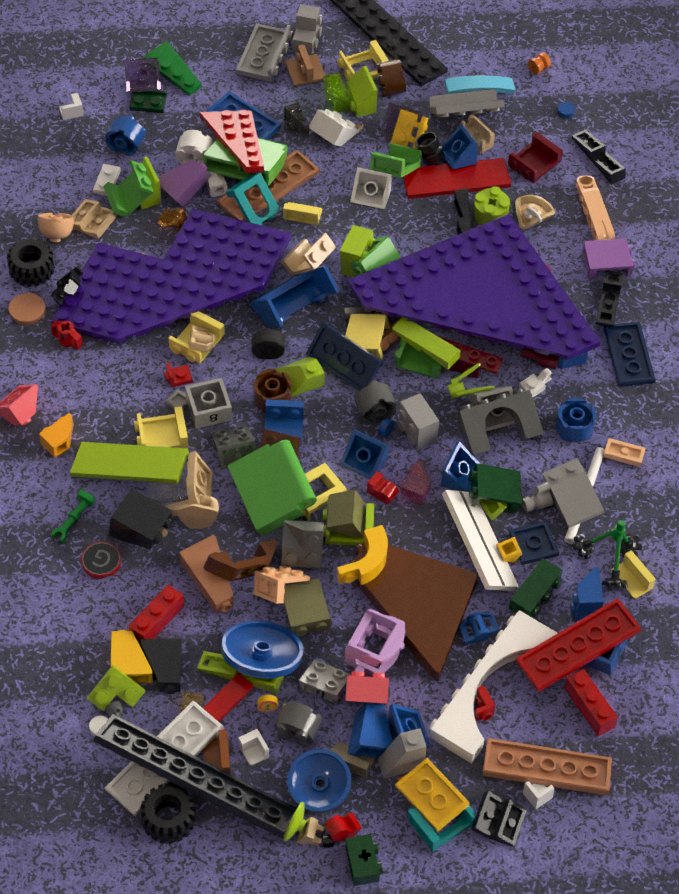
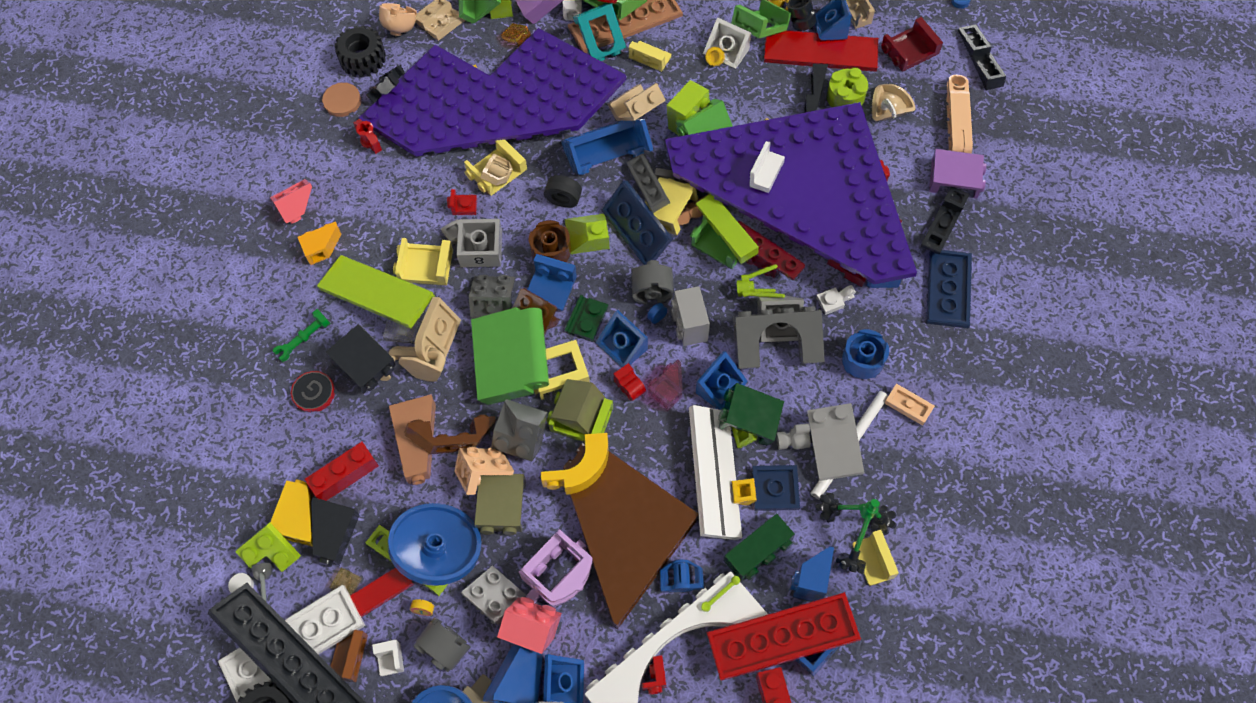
camera: 20 degrees right, 10 degrees up
(325, 446) = (586, 318): none -> dark green plate
(342, 320) = (648, 183): none -> dark grey tile
(363, 202) = (715, 56): none -> yellow tile
(447, 285) = (766, 169): none -> white panel
(508, 640) = (706, 606): none -> lime hinge

